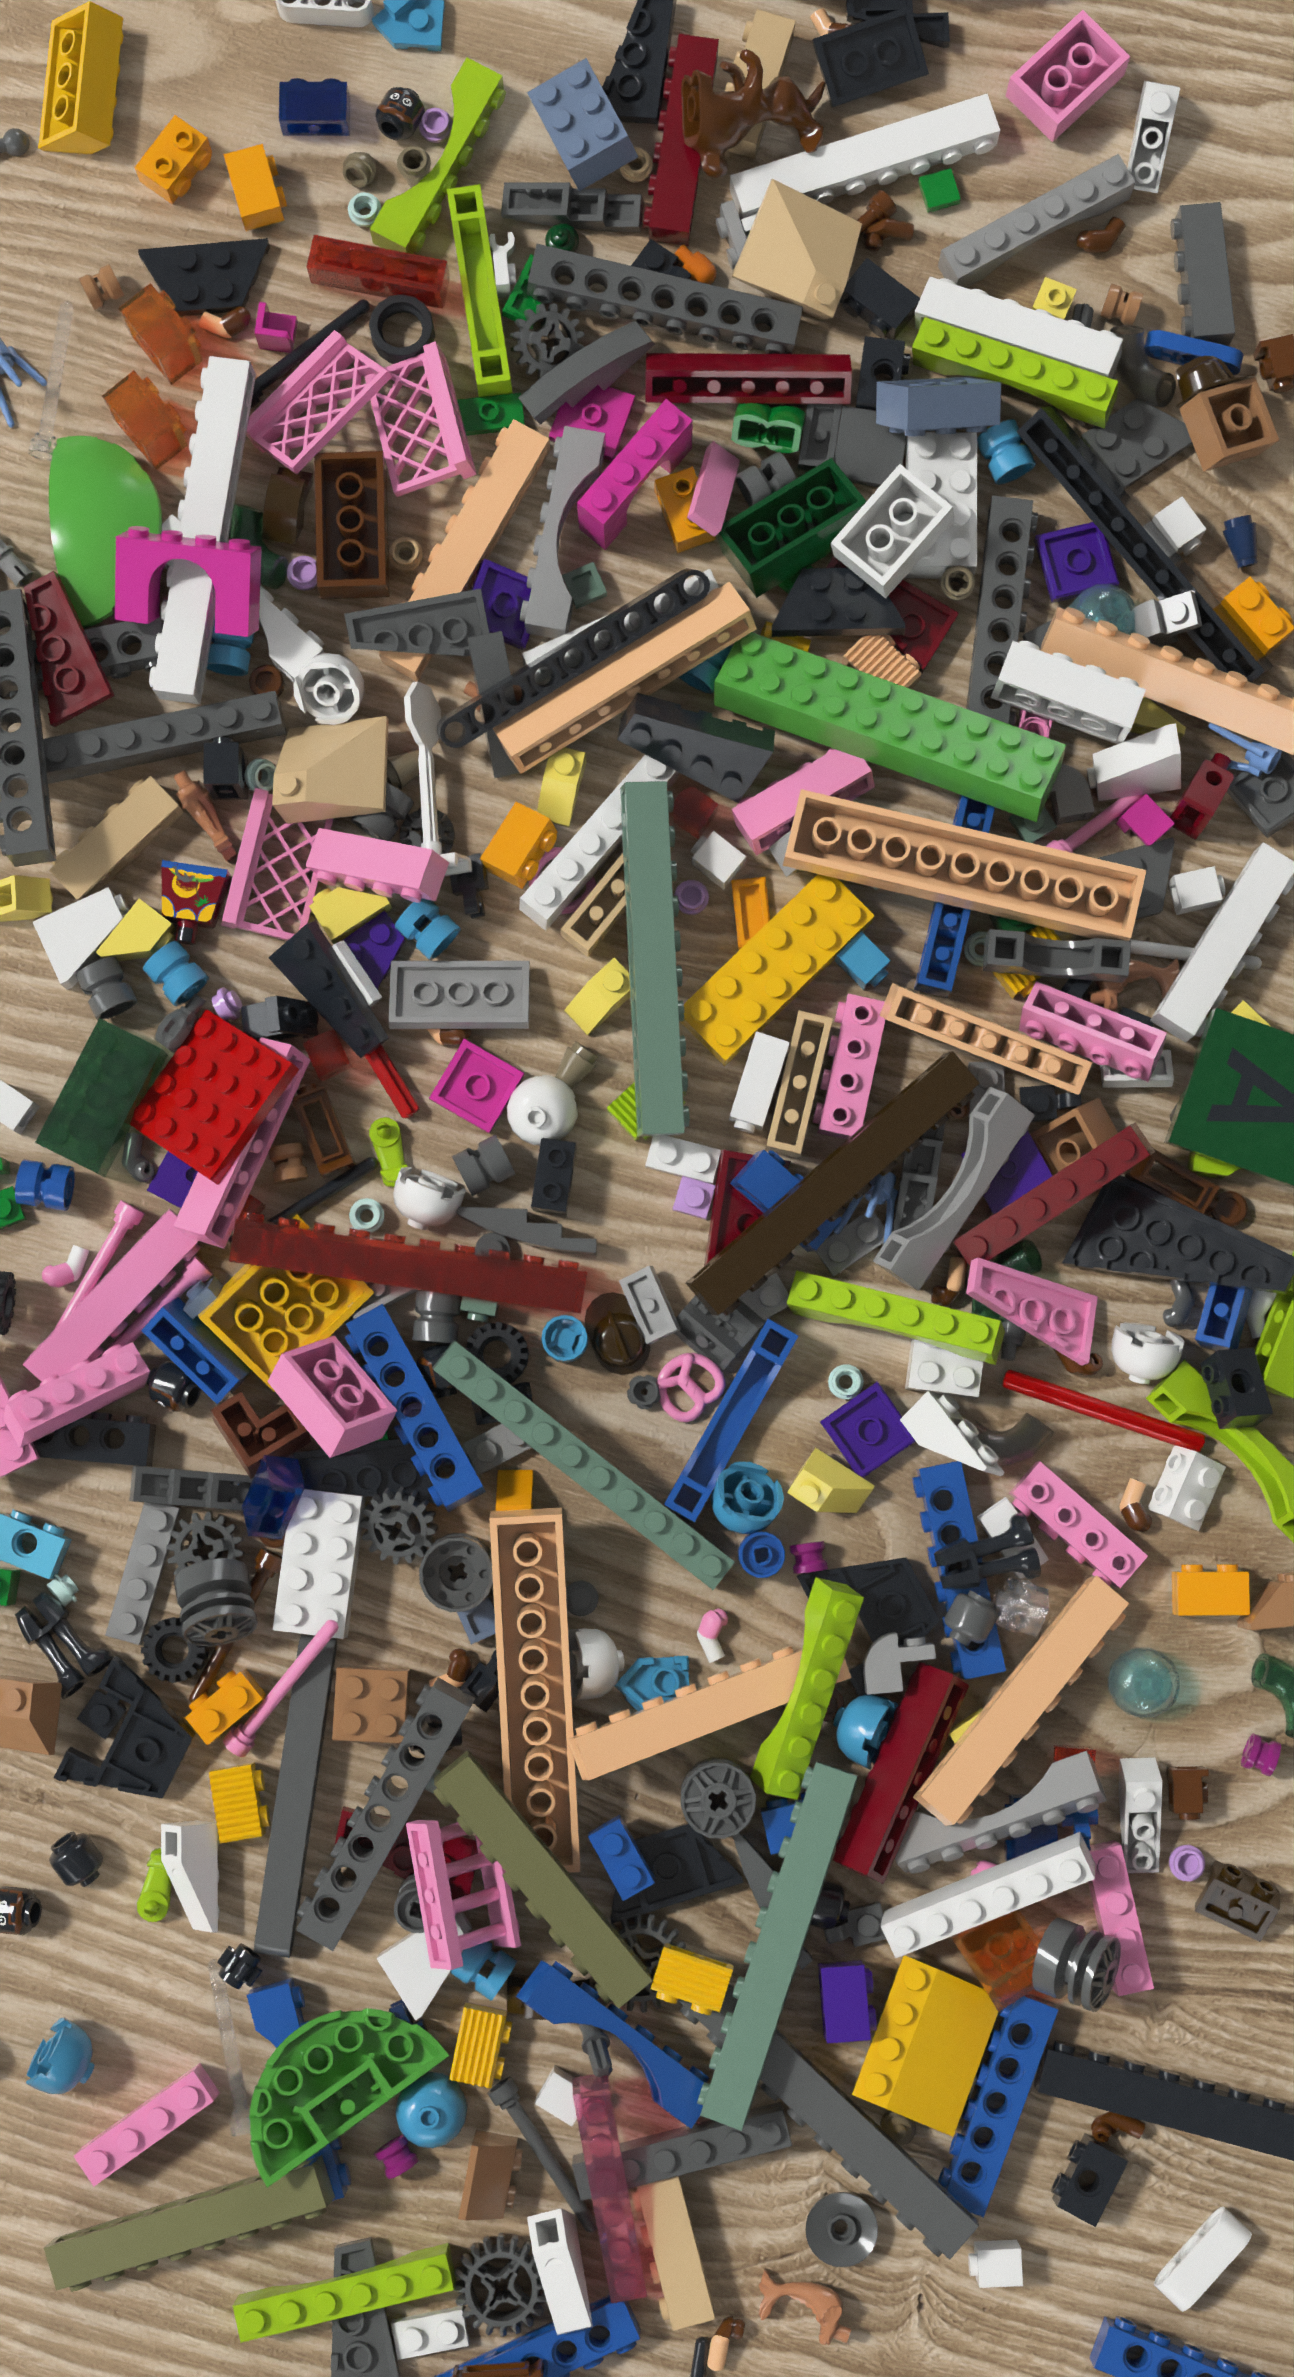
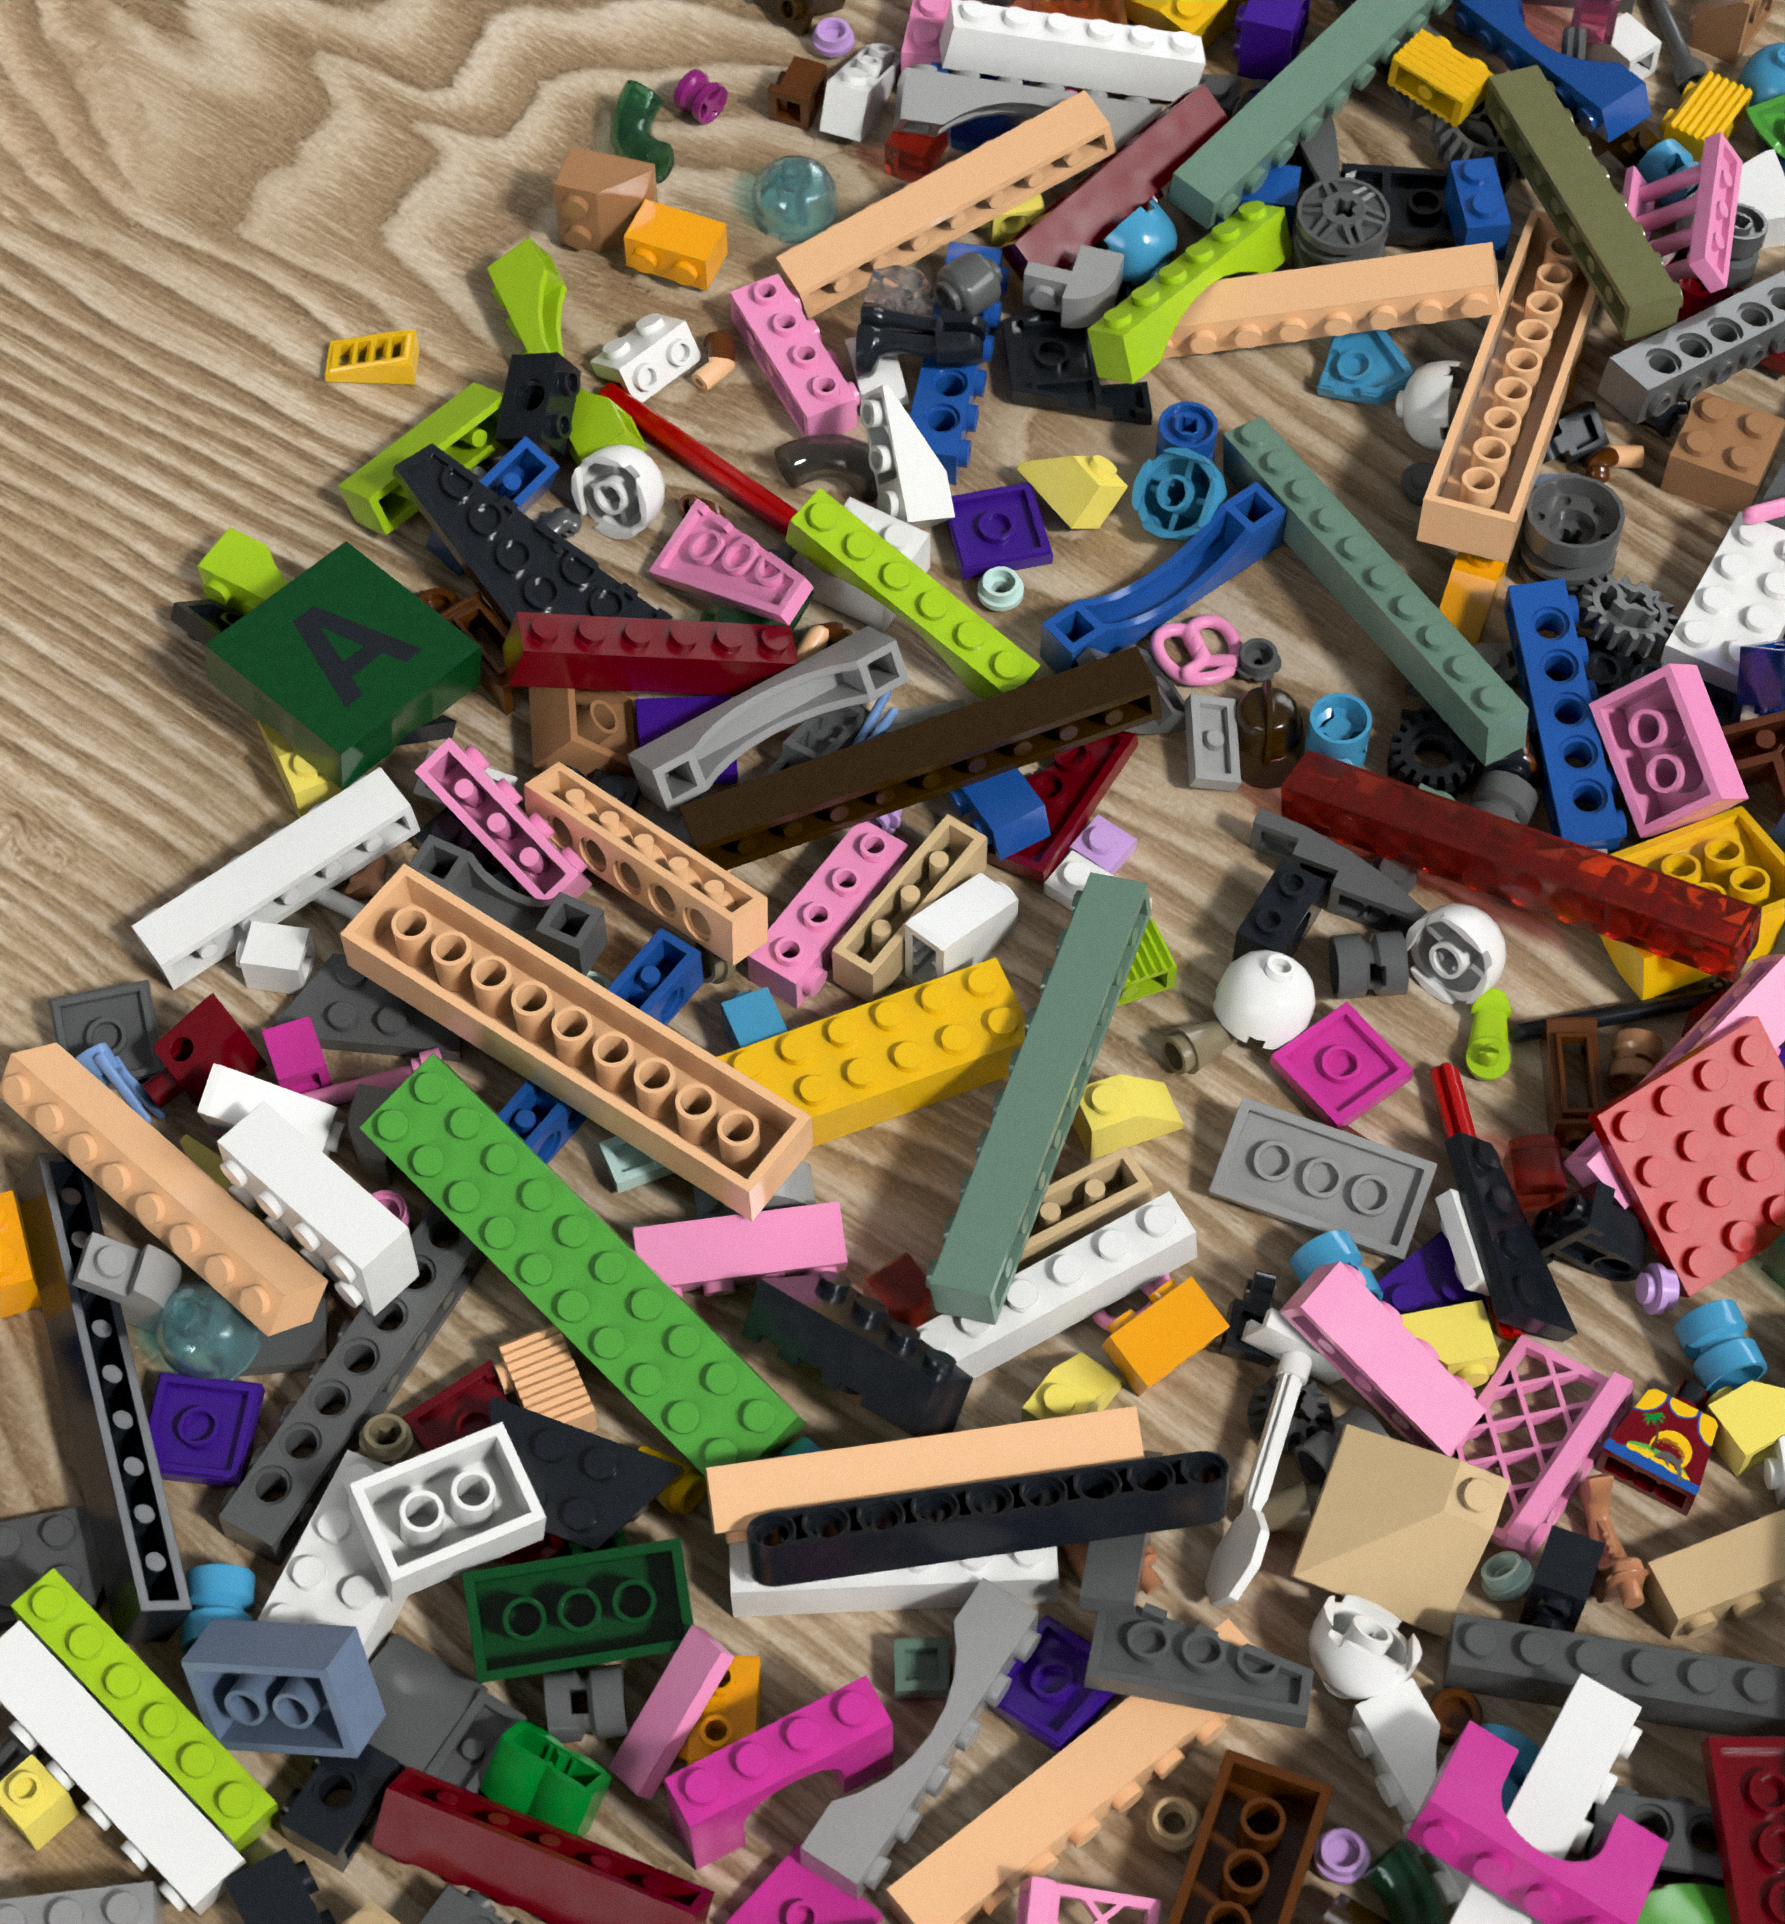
camera: 160 degrees left, 25 degrees down
(178, 1024) = (1741, 1280): dark grey piece -> none
(366, 1204) = (1549, 960): light aqua plate -> none
(692, 897) = (942, 1195): lavender plate -> none
(709, 1631) = (1280, 402): arm -> none
(717, 859) = (892, 1221): white brick -> none
(750, 907) = (874, 1157): light orange tile -> none
(808, 1557) = (1129, 429): magenta wheel -> none
(1180, 526) = (36, 1417): white brick -> none

